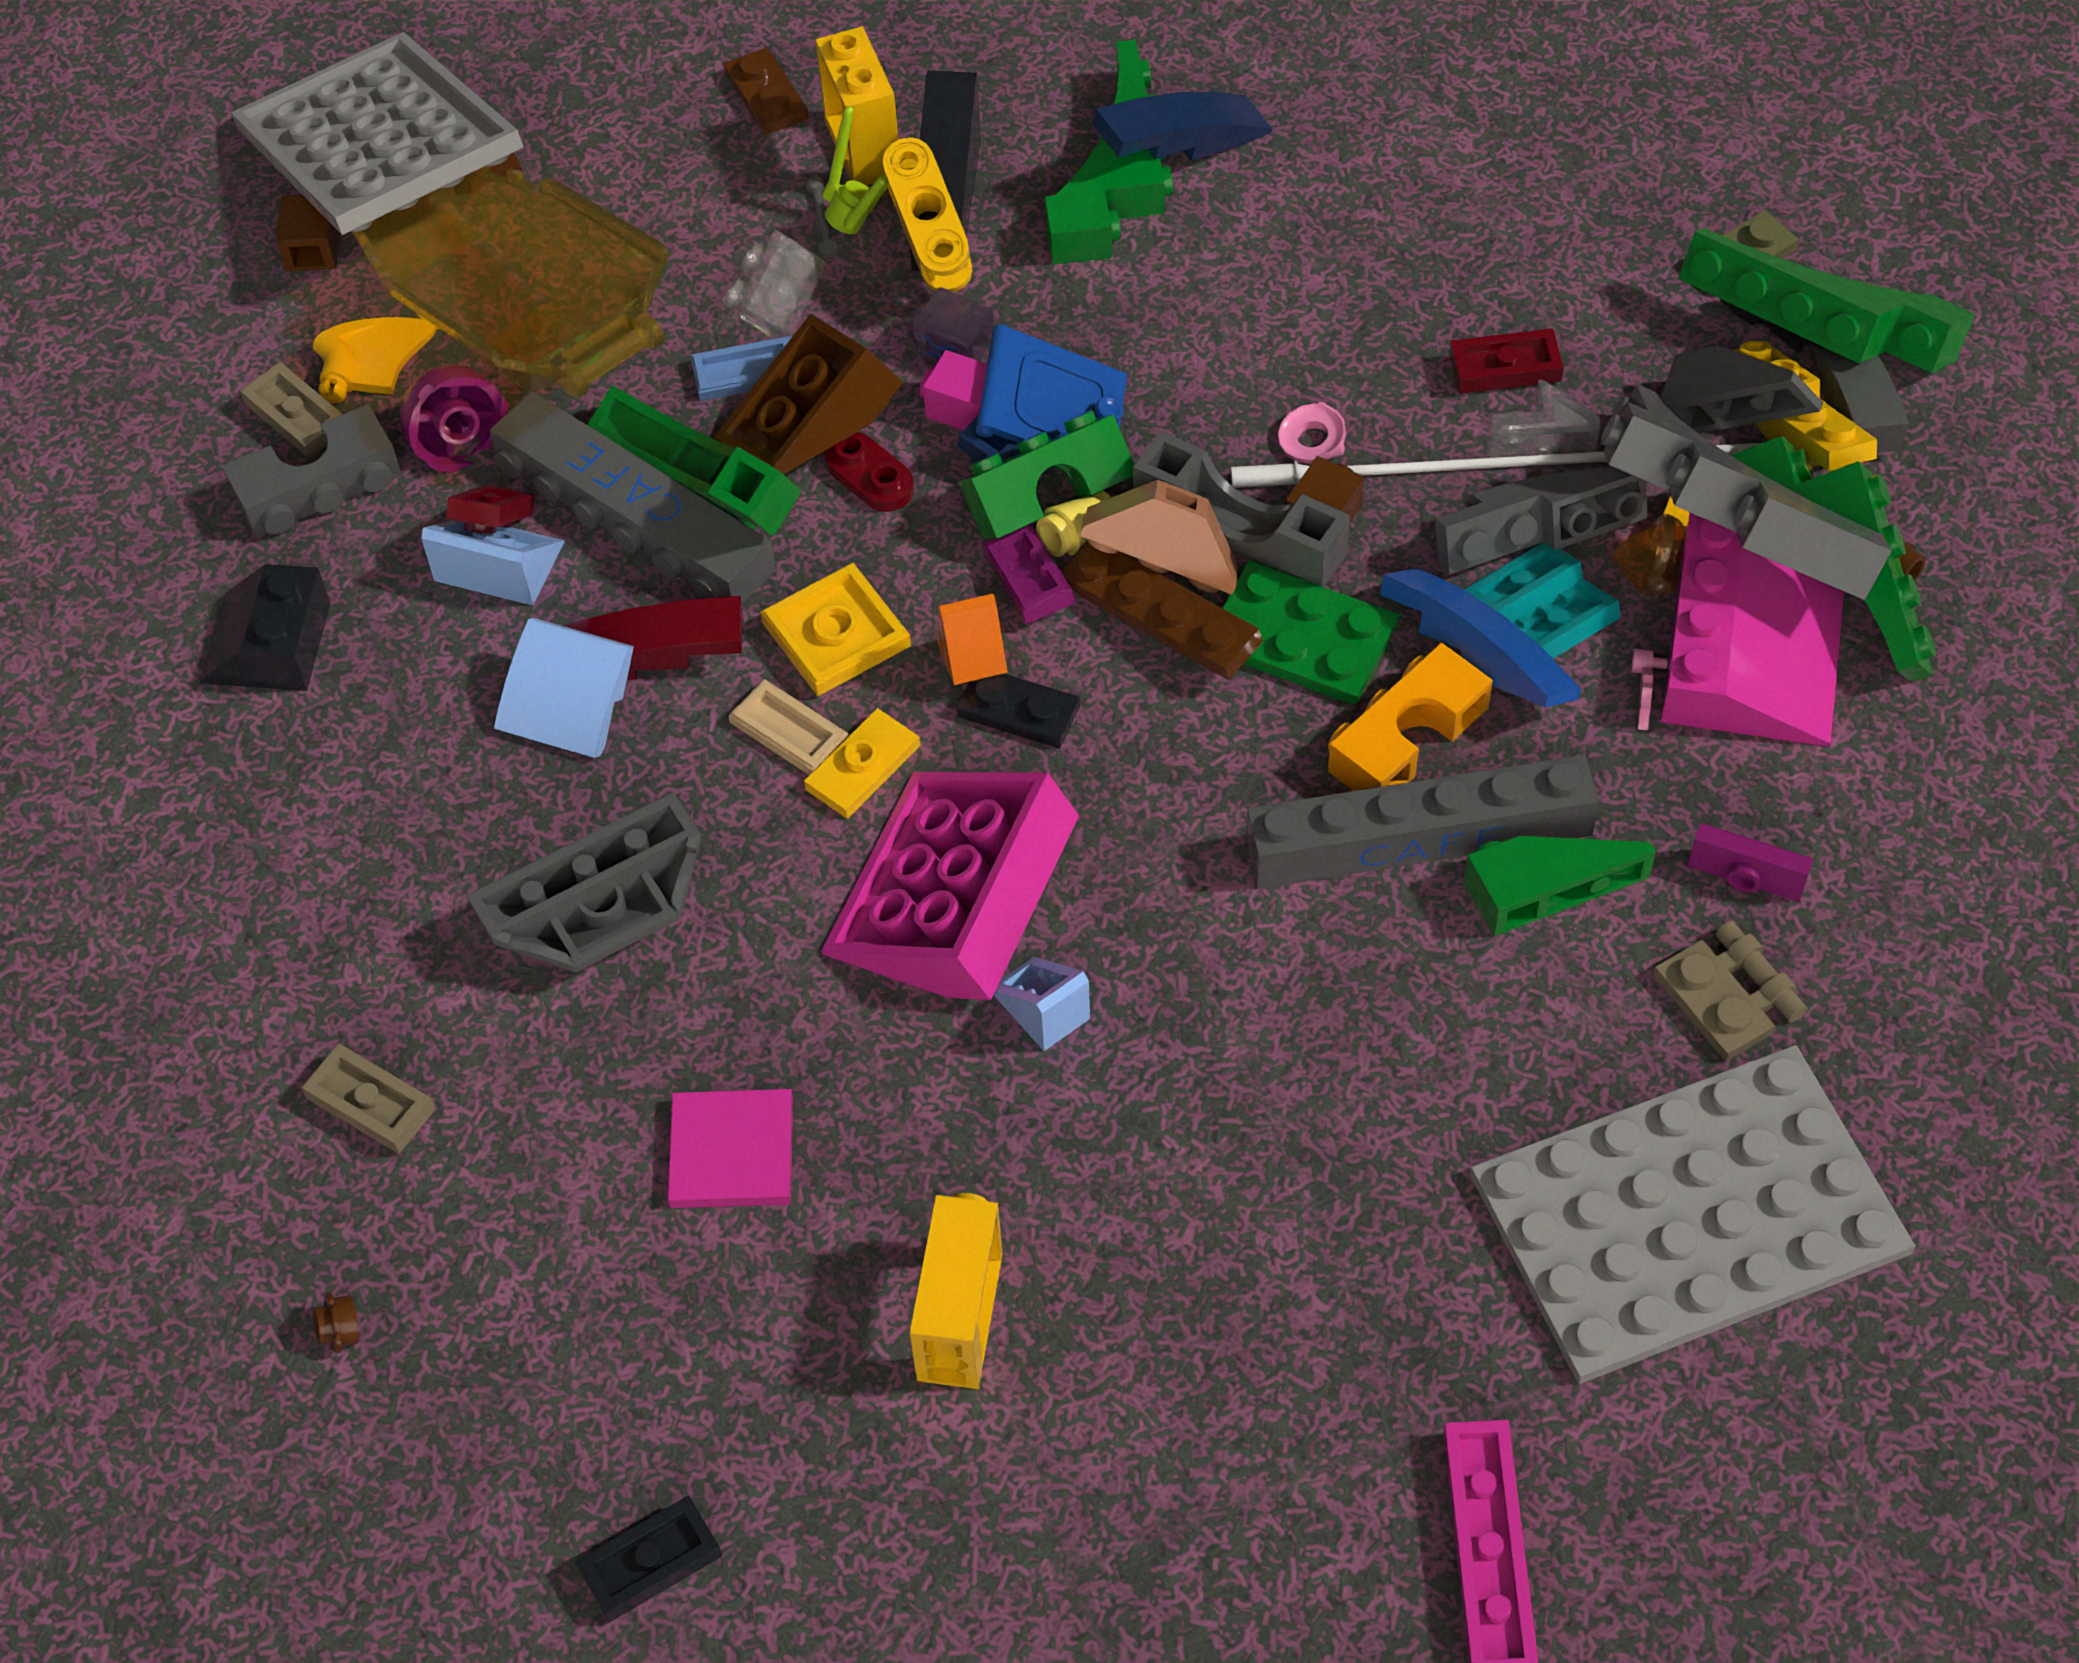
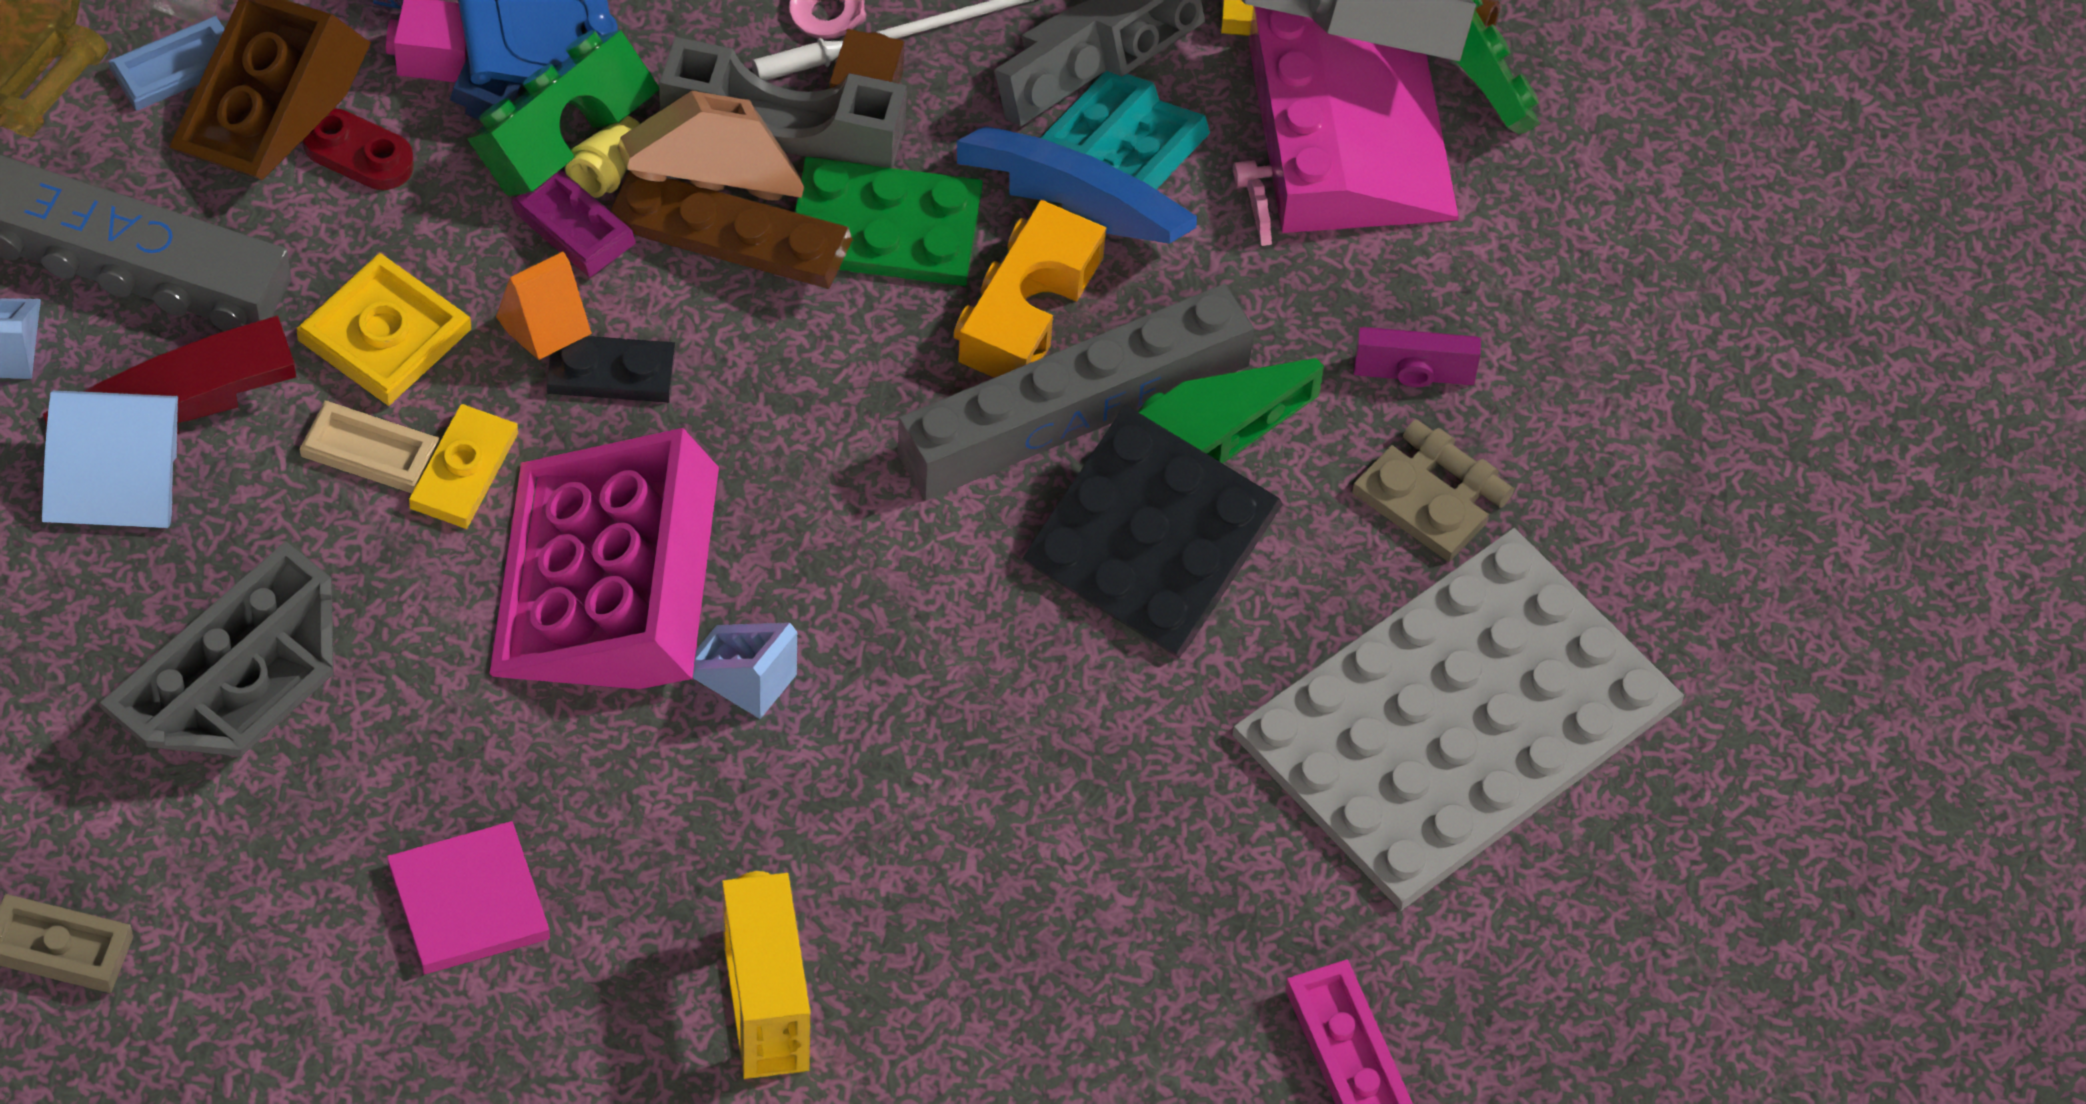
camera: 25 degrees left, 0 degrees up
(715, 471) = (207, 186): green arch -> none
(1450, 967) = (1152, 531): none -> black plate
(1651, 555) = (1221, 61): clear orange piece -> none

